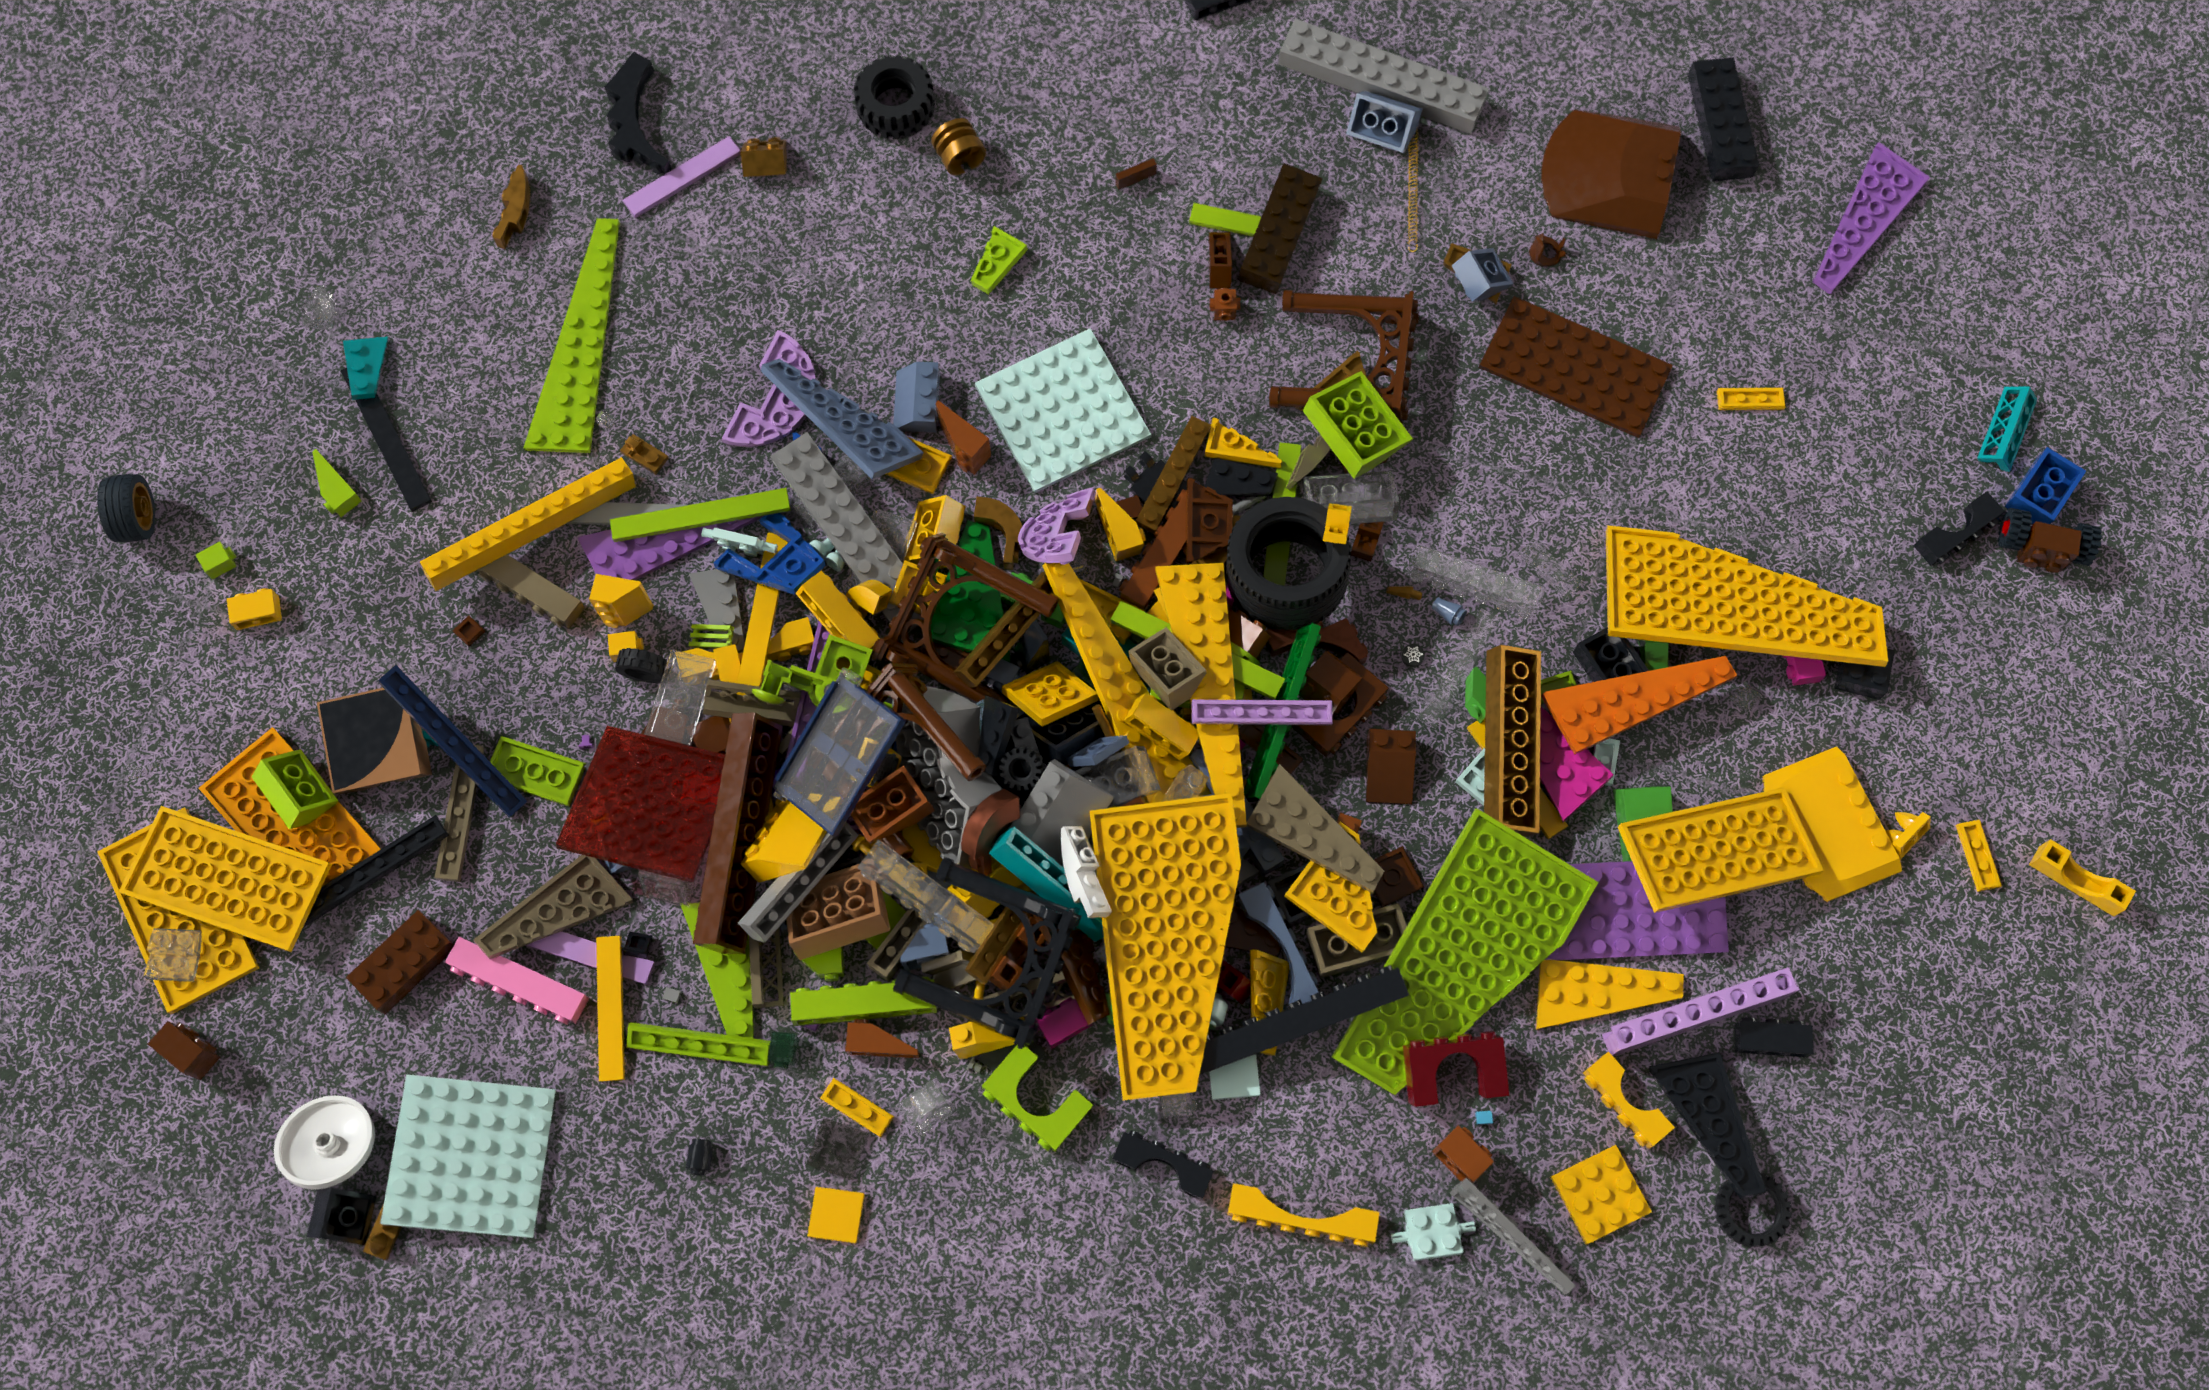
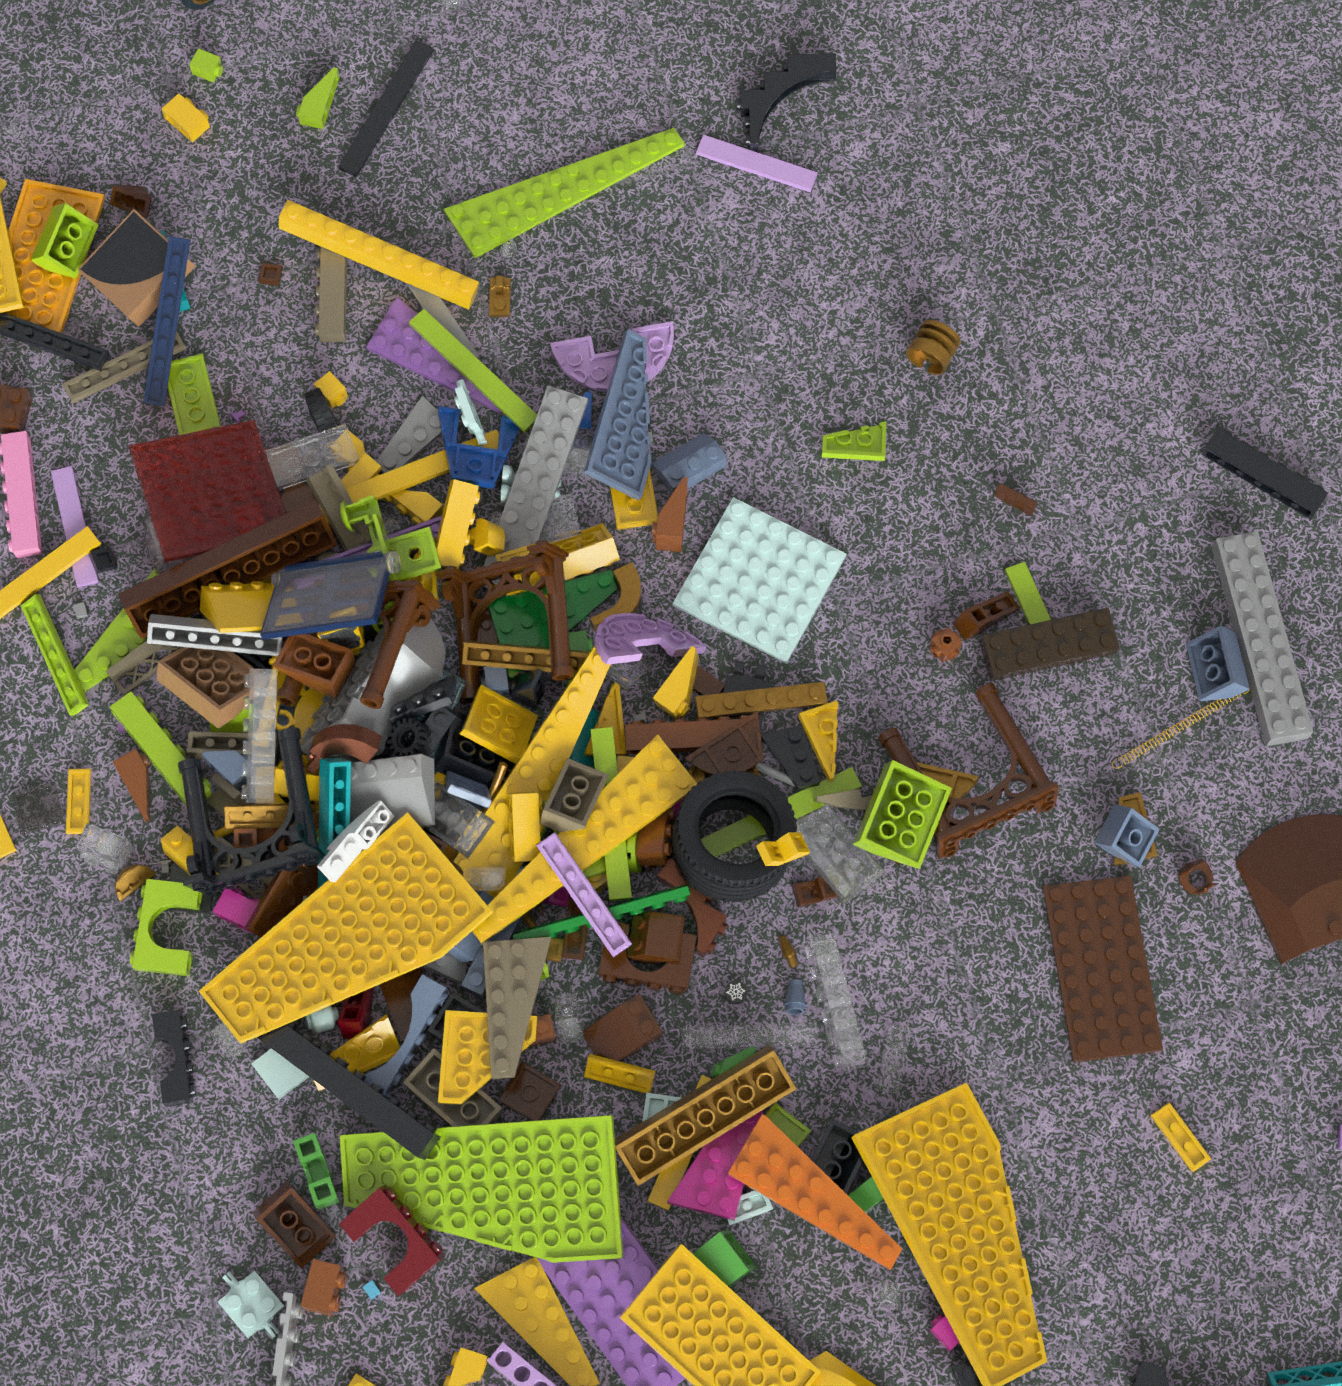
camera: 55 degrees right, 0 degrees up
(296, 706) = (130, 198): none -> reddish brown slope
(364, 364) = (430, 52): teal wing -> none
(517, 203) = (646, 61): pearl gold slope -> none
(567, 899) = (101, 485): dark tan wing -> none
(619, 600) = (357, 359): yellow slope -> none
(705, 627) = (375, 436): lime tile -> none
(764, 157) = (816, 210): pearl gold slope -> none
(783, 1050) = (87, 717): clear green brick -> none
(827, 964) = (174, 707): lime slope -> none
(890, 74) = (947, 246): black tyre -> none
(967, 1103) = (131, 879): none -> pearl gold tile
(1251, 1204) = (184, 1146): yellow arch -> none
(1349, 801) = (569, 1017): none -> clear slope
(1359, 1102) = (316, 1171): none -> bright green arch
(1384, 1149) = (294, 1224): none -> reddish brown slope
(1424, 791) = (619, 1073): none -> yellow tile

